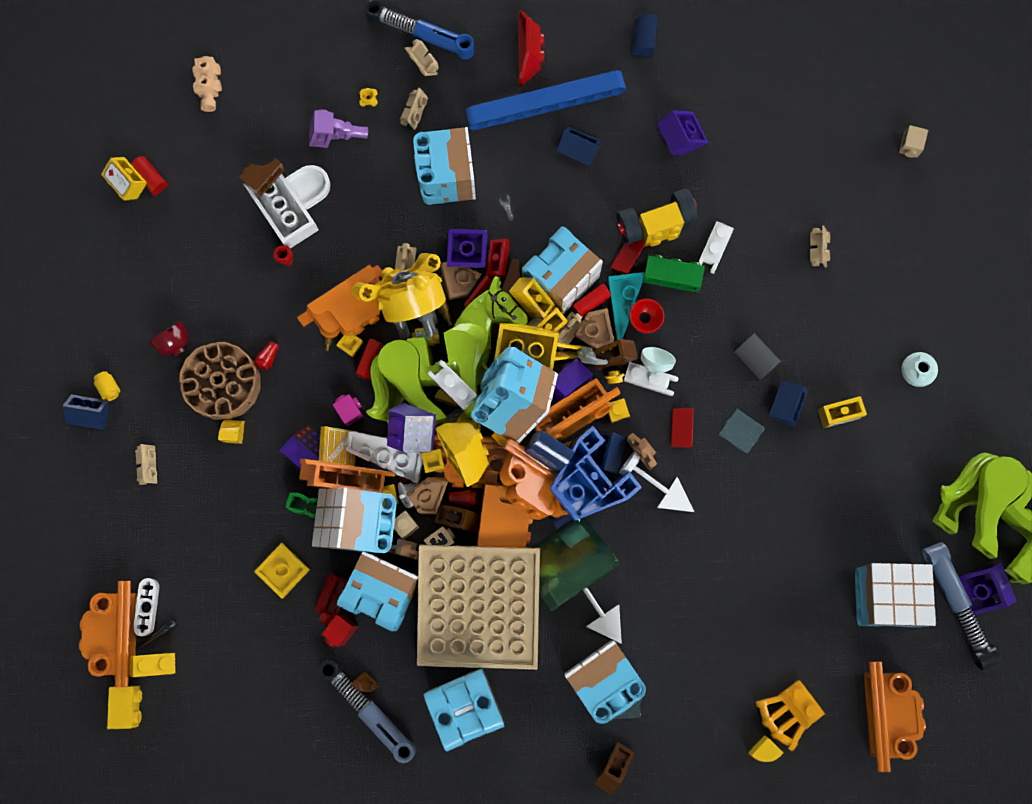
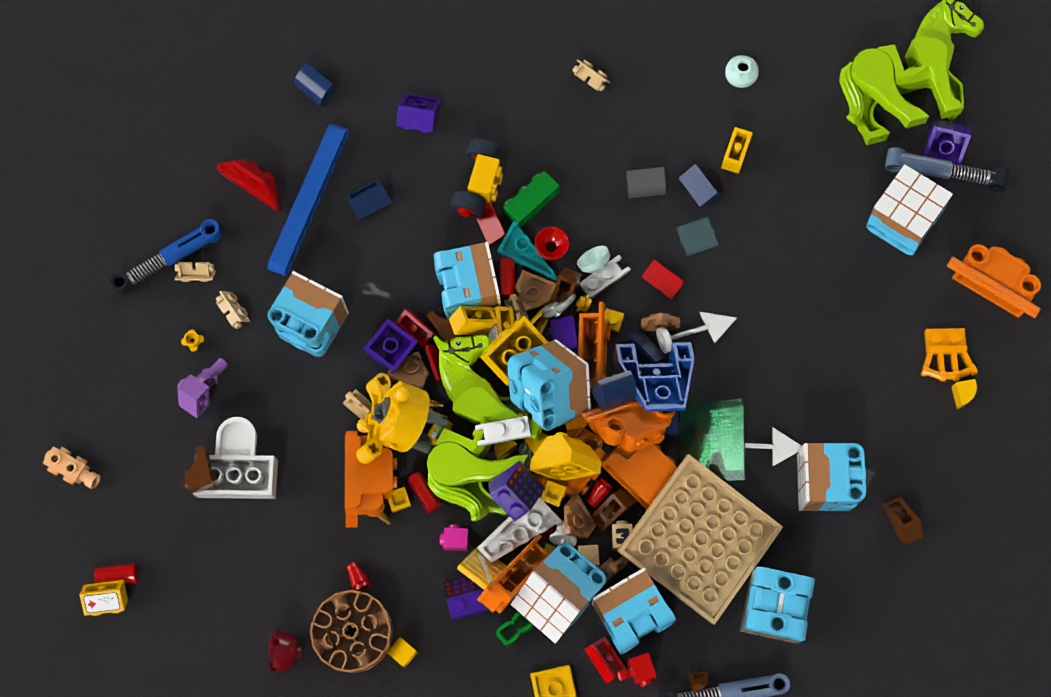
camera: 55 degrees left, 5 degrees down
(283, 255) = (278, 499): red cone -> none
(716, 245) = (531, 151): white hinge -> none

